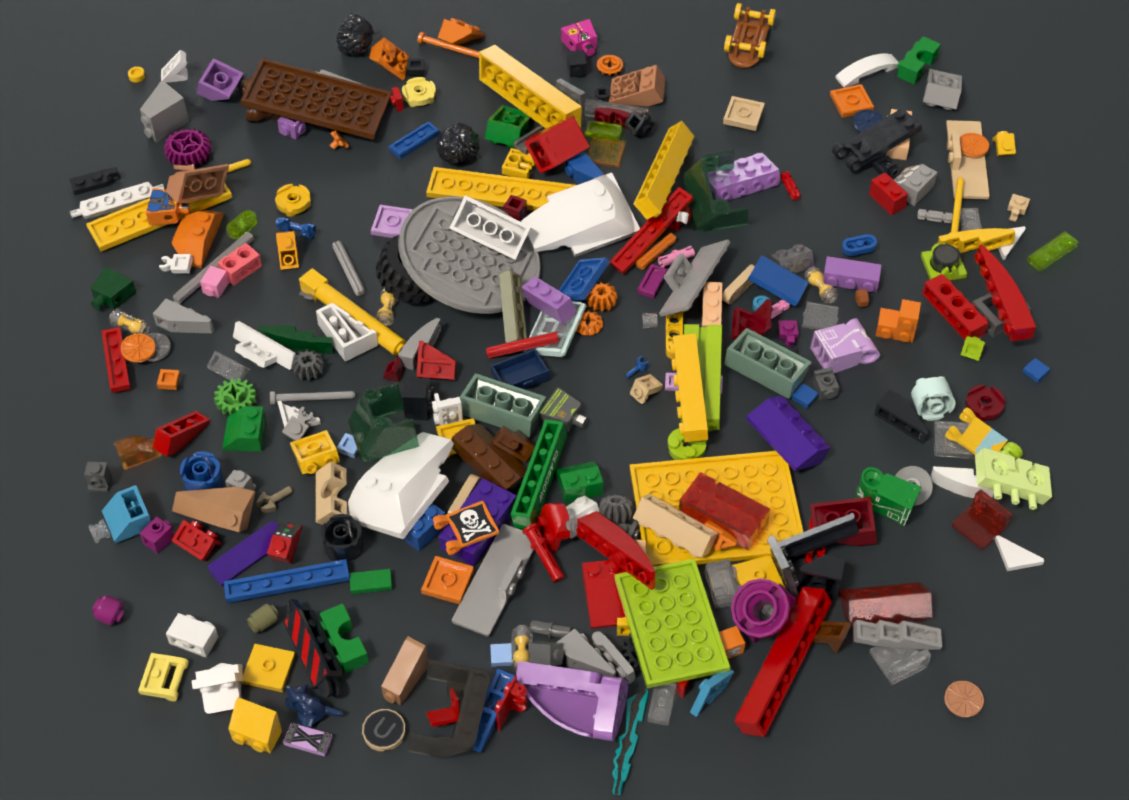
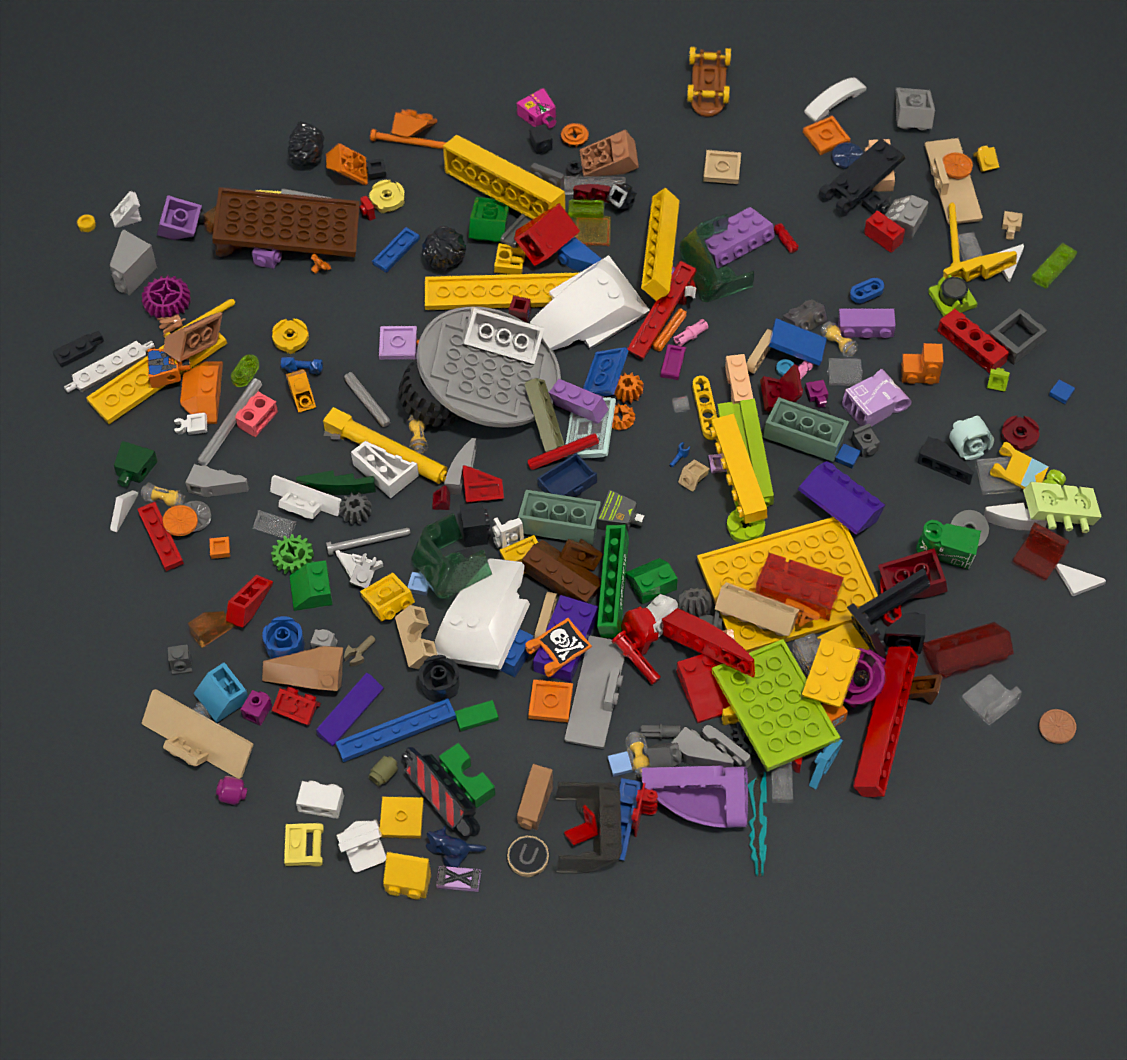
camera: 10 degrees left, 5 degrees up
(88, 327) = (121, 509): none -> white tile
(89, 552) = (196, 736): none -> tan bracket
(214, 282) = (236, 437): bright pink brick -> none
(284, 542) = (384, 692): red slope -> none
(688, 279) = (711, 353): light grey bracket -> none
(734, 600) = (831, 673): none -> yellow plate
(862, 297) = (881, 345): dark orange tile -> none
(902, 635) = (985, 678): light grey slope -> none
(913, 64) = (886, 71): green arch -> none
(936, 216) = (933, 247): light grey axle -> none
(1005, 296) = (1020, 322): red slope -> none

